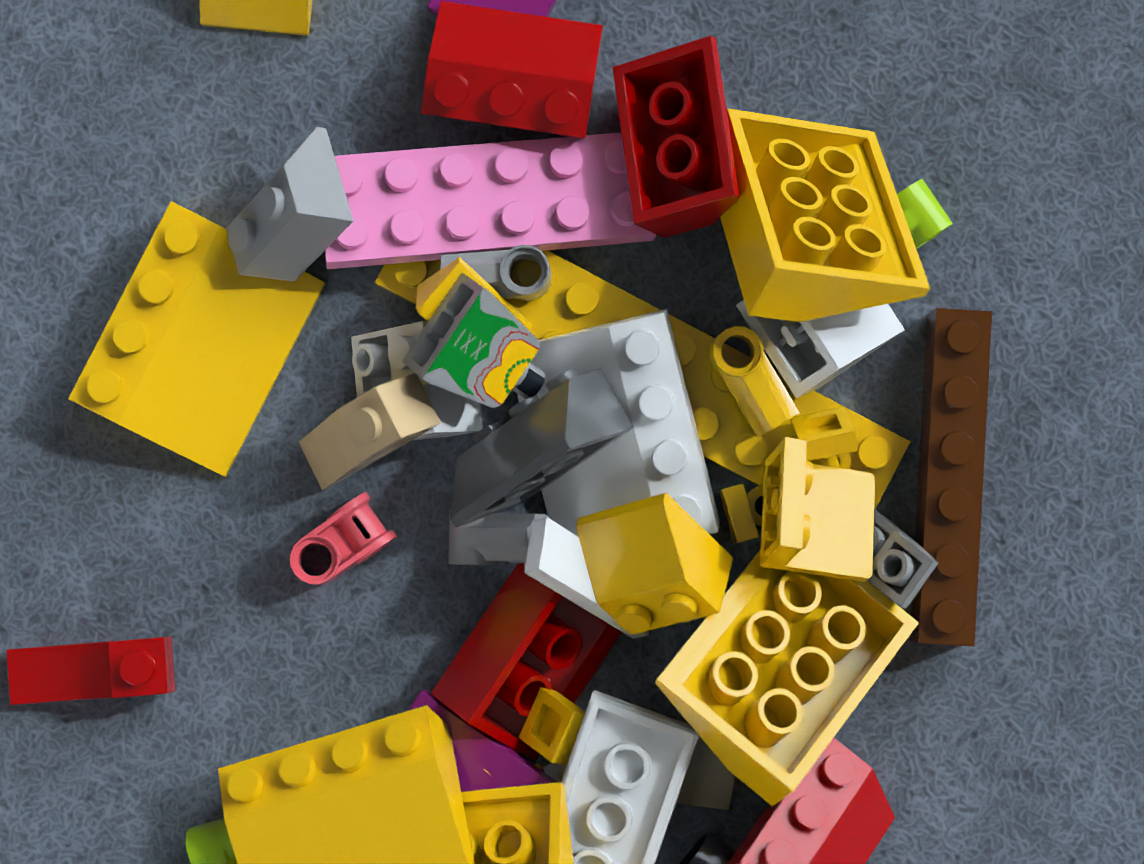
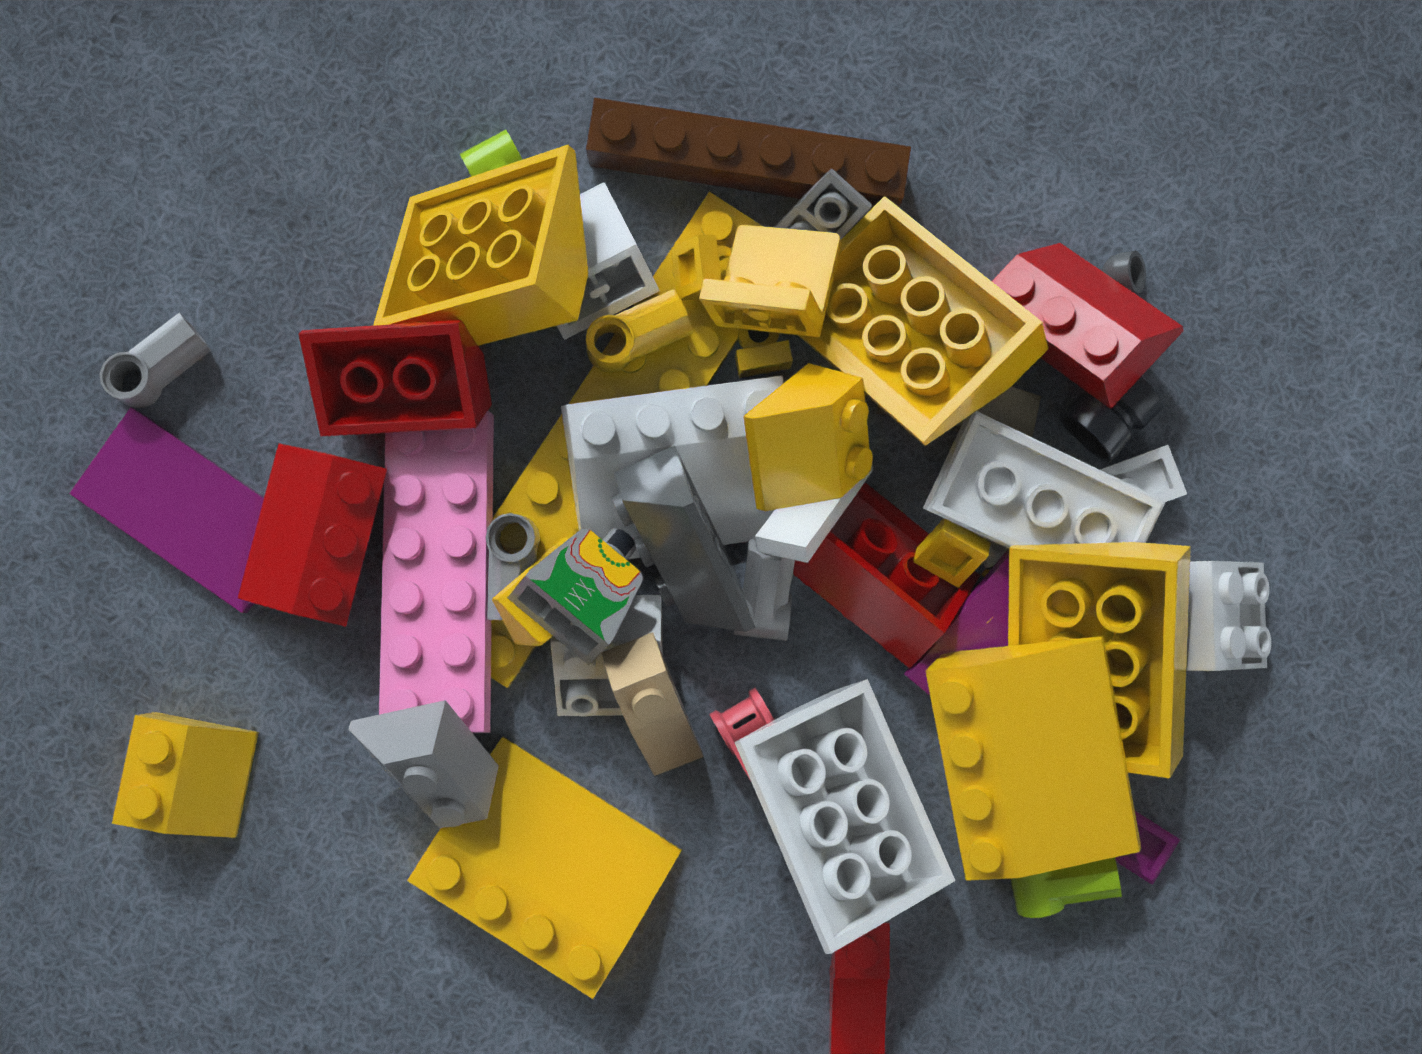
camera: 90 degrees left, 0 degrees up
(275, 635) = (844, 813): none -> white slope

